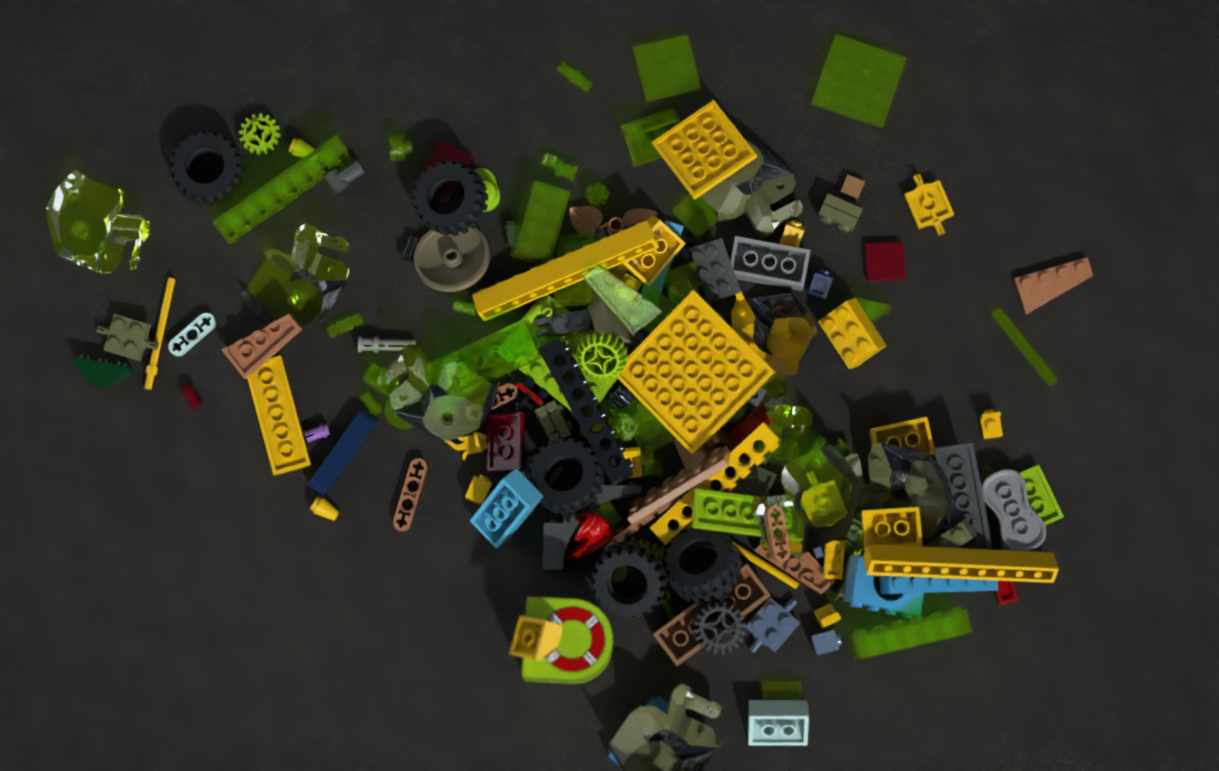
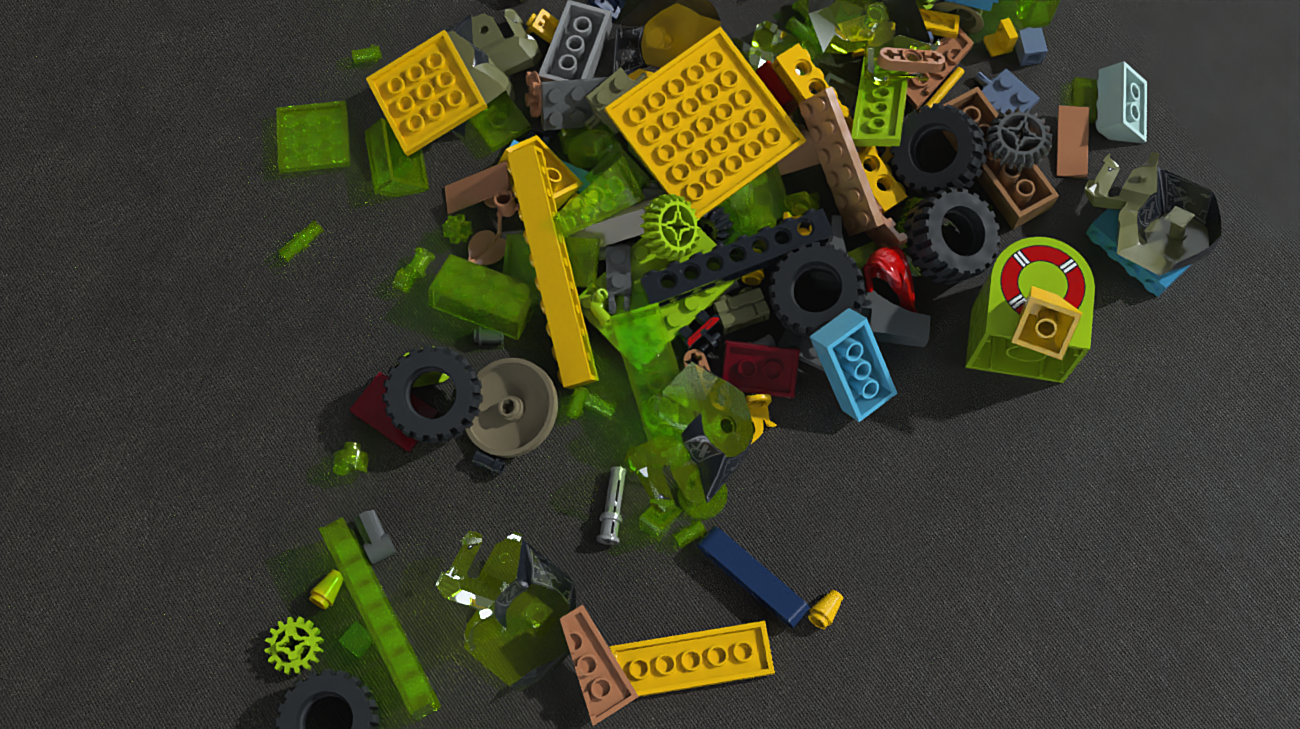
camera: 85 degrees left, 10 degrees down
(267, 174) = (357, 639): none -> clear neon green tile
(319, 432) = (721, 608): medium lavender pin -> none
(344, 325) = (579, 558): clear neon green axle -> none
(412, 495) = (817, 493): nougat beam -> none
(464, 325) = (600, 405): none -> clear neon green pin
(479, 490) = (818, 408): yellow brick -> none
(632, 203) = (477, 187): none -> nougat piece
(721, 298) = (606, 93): none -> olive plate
(723, 234) = (533, 98): none -> nougat dish
(739, 682) = (1072, 141): none -> nougat piece
(748, 97) = (367, 54): none -> clear neon green pin

